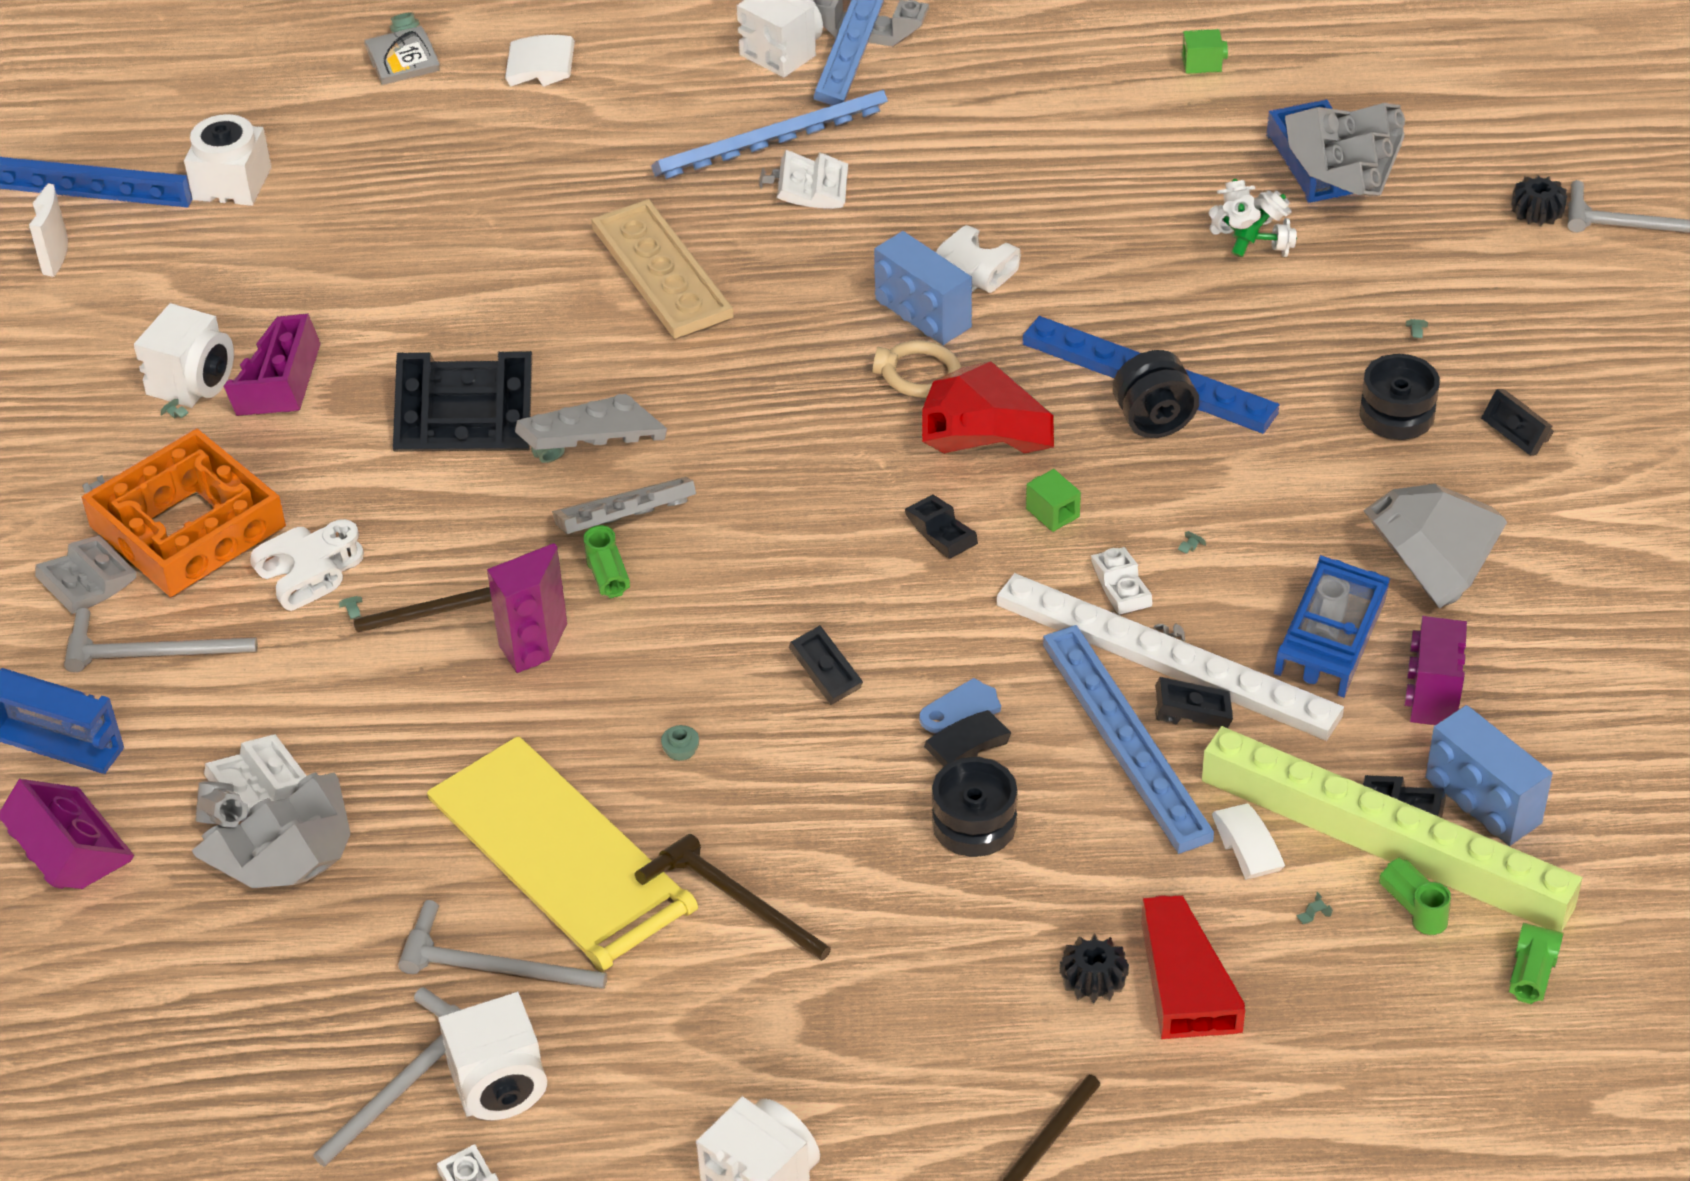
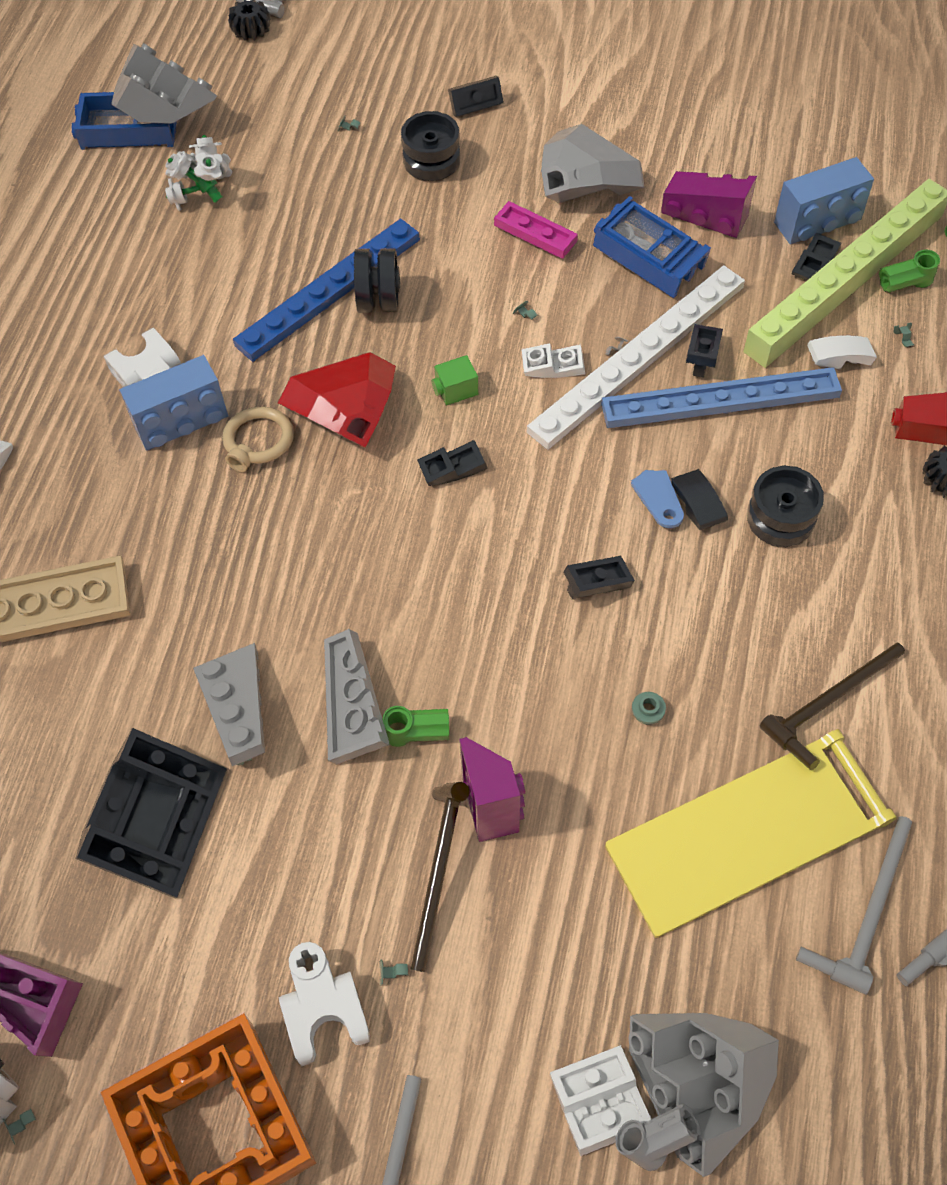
camera: 75 degrees left, 15 degrees up
(1318, 522) = (535, 229): none -> dark pink plate

